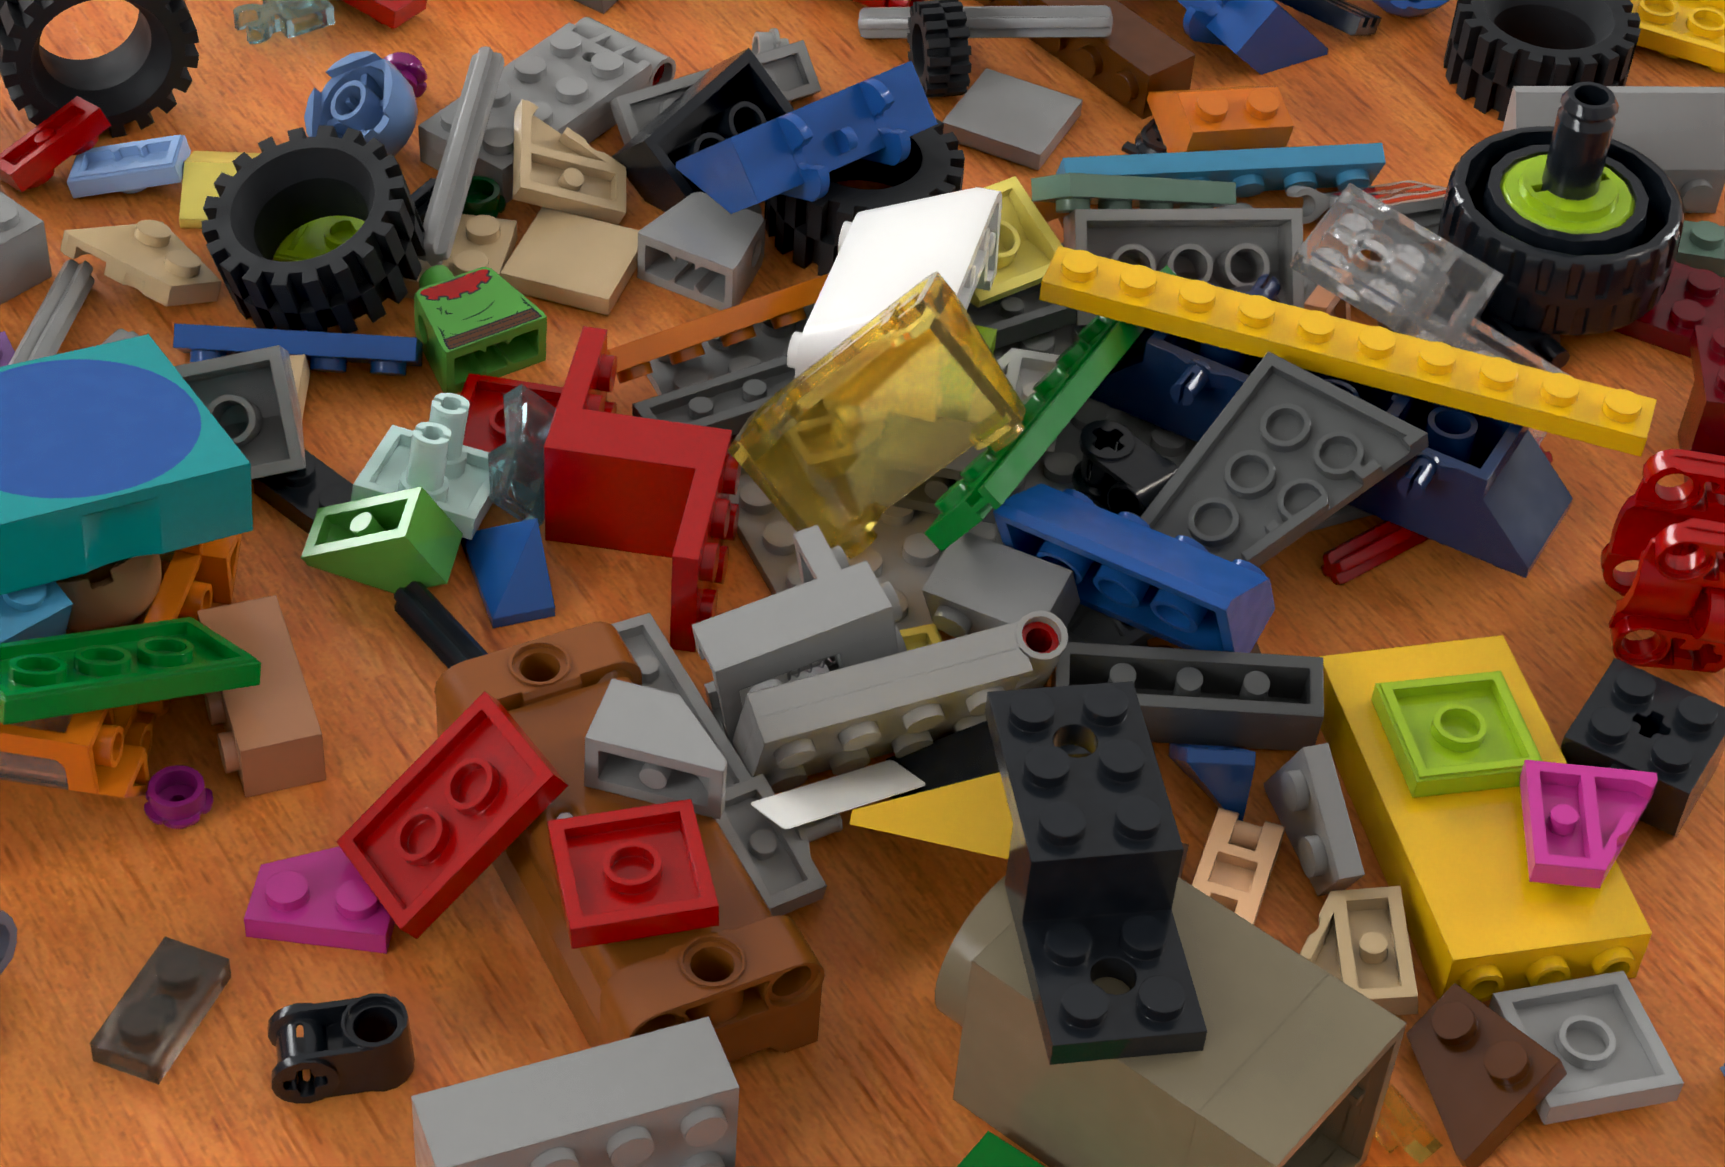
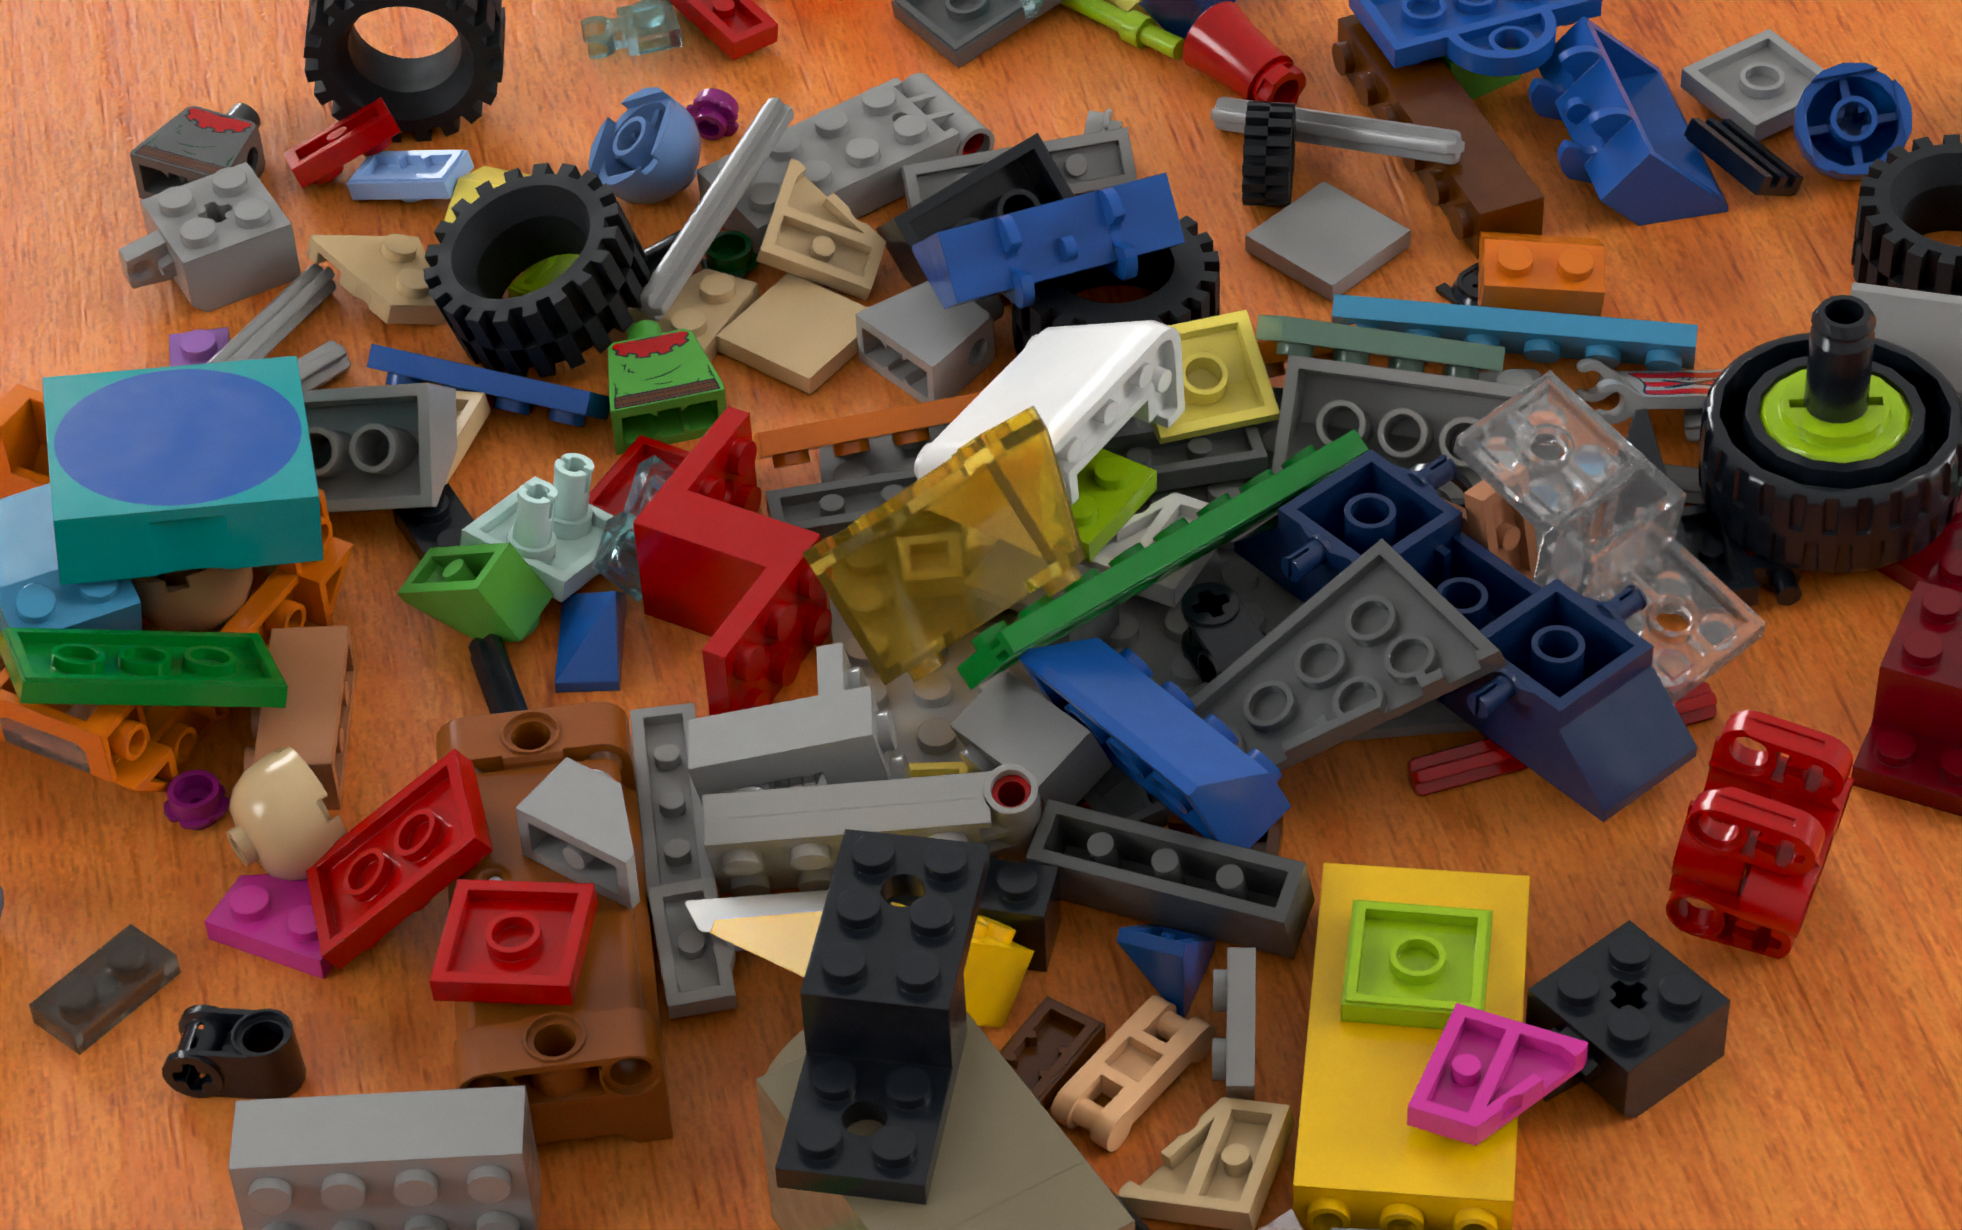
camera: 25 degrees right, 0 degrees up
(299, 794) = (281, 816): none -> tan cylinder
(1350, 350) = (1485, 553): yellow plate -> none

